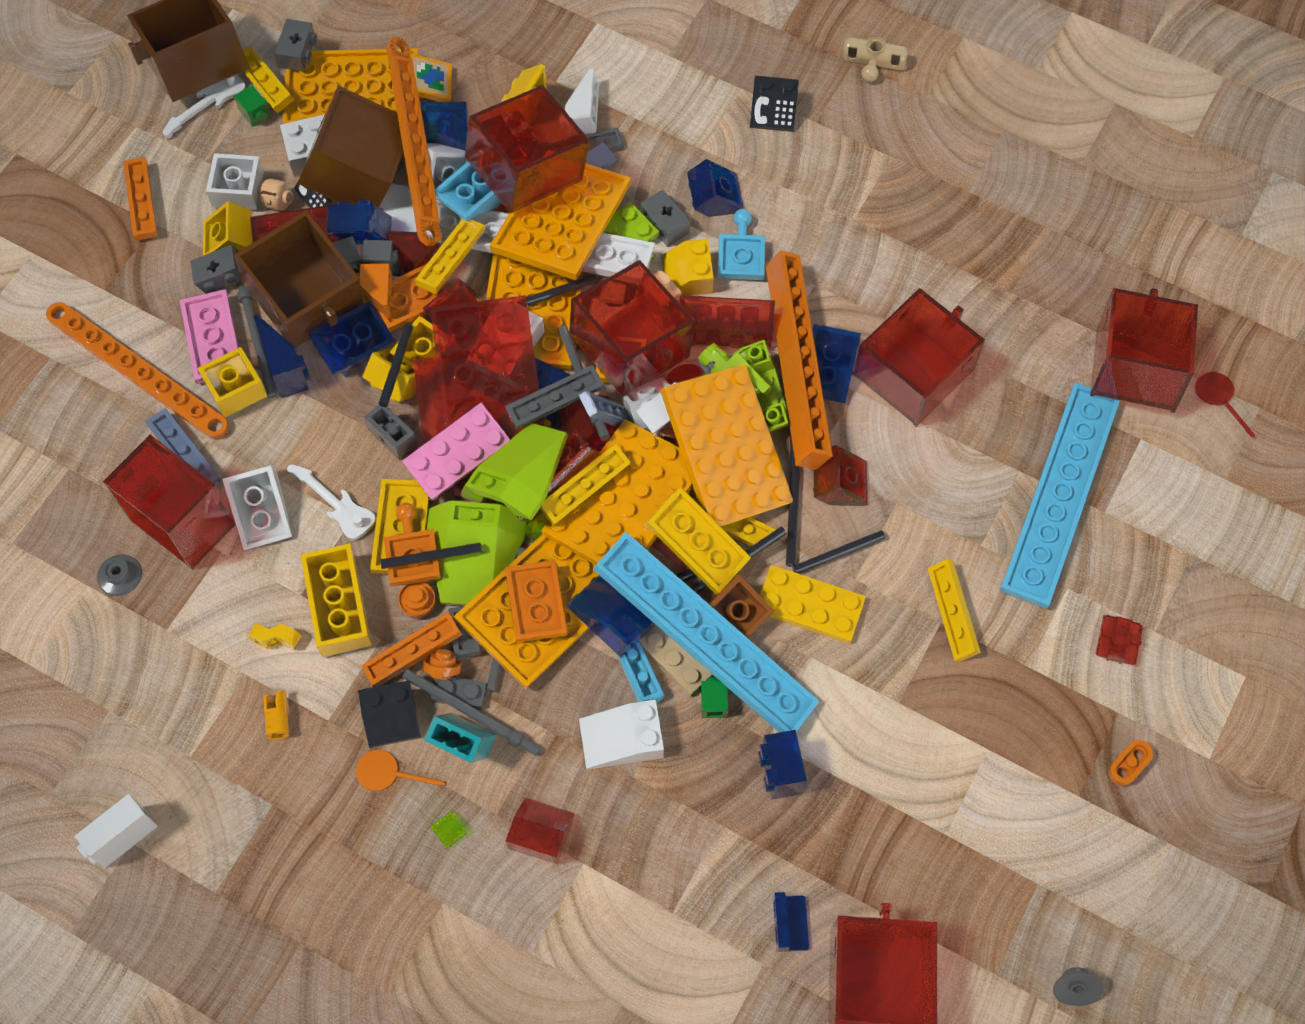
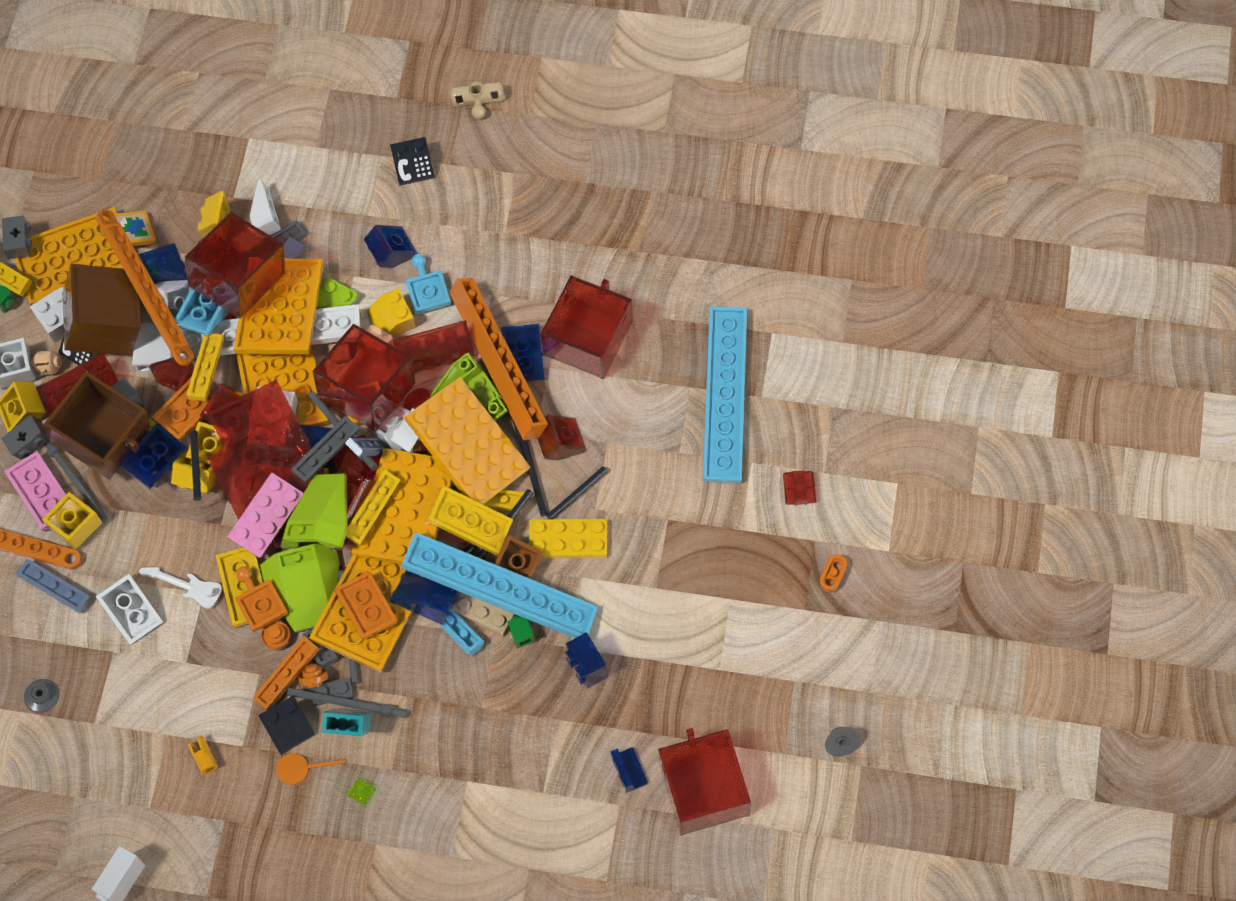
camera: 15 degrees left, 0 degrees up
(170, 501) = (64, 626): clear red piece -> none
(273, 636) = (181, 697): yellow piece -> none
(286, 367) = (107, 492): clear blue slope -> none
(335, 600) = (215, 656): yellow brick -> none
(358, 220) = (128, 363): clear blue brick -> none
(377, 286) = (158, 410): orange slope -> none
(381, 253) = (151, 389): dark grey brick -> none
(391, 431) = (209, 517): dark grey brick -> none
(431, 555) = (275, 599): black bar -> none
(534, 528) = (345, 552): clear neon green plate -> none
(539, 830) = (427, 769): clear red slope -> none
(561, 290) = (301, 363): black bar -> none
(622, 735) = (463, 681): white slope -> none
(666, 217) = (359, 280): dark grey brick -> none
(715, 359) = (438, 380): lime plate -> none
(953, 610) = (673, 507): yellow plate -> none
(1144, 349) = (751, 265): clear red piece -> none
(1218, 390) = (817, 276): clear red piece -> none

